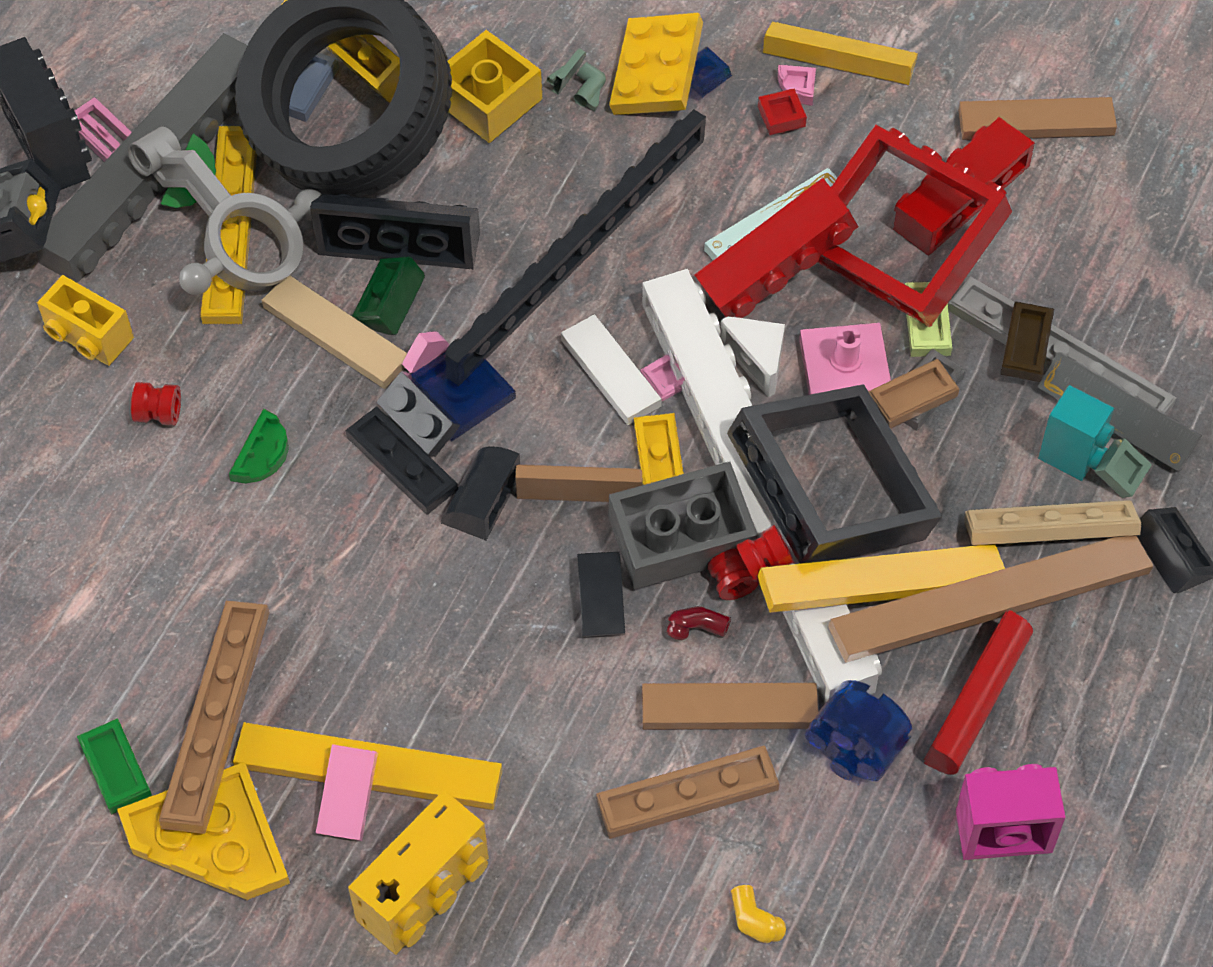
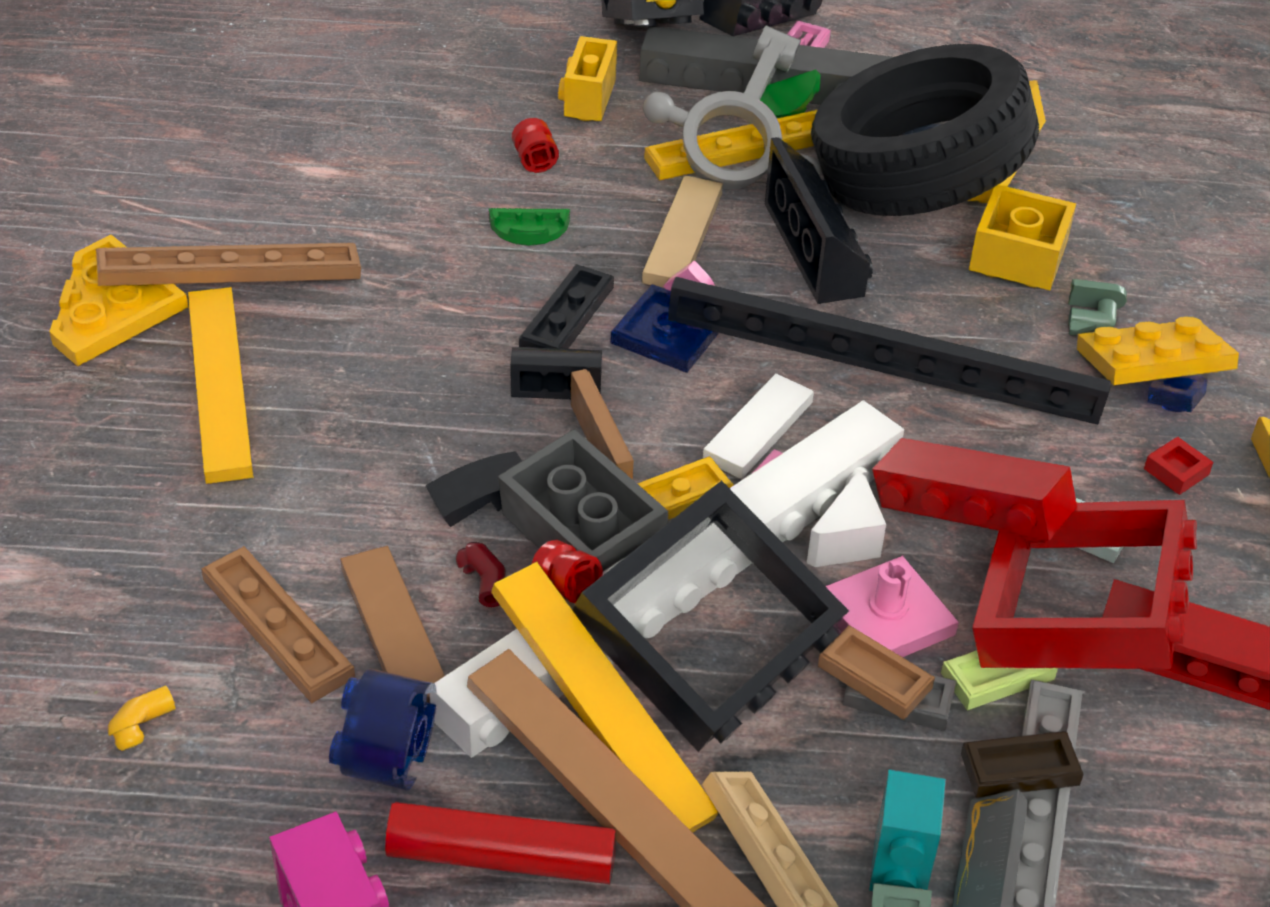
camera: 65 degrees right, 15 degrees down
(114, 765) = (166, 227): green tile -> none
(346, 792) = (177, 367): bright pink tile -> none
(389, 294) = (746, 256): dark green slope -> none
(418, 414) = (619, 302): plate -> none
(420, 873) = (94, 425): yellow piece -> none
(799, 78) = (1234, 475): bright pink tile -> none

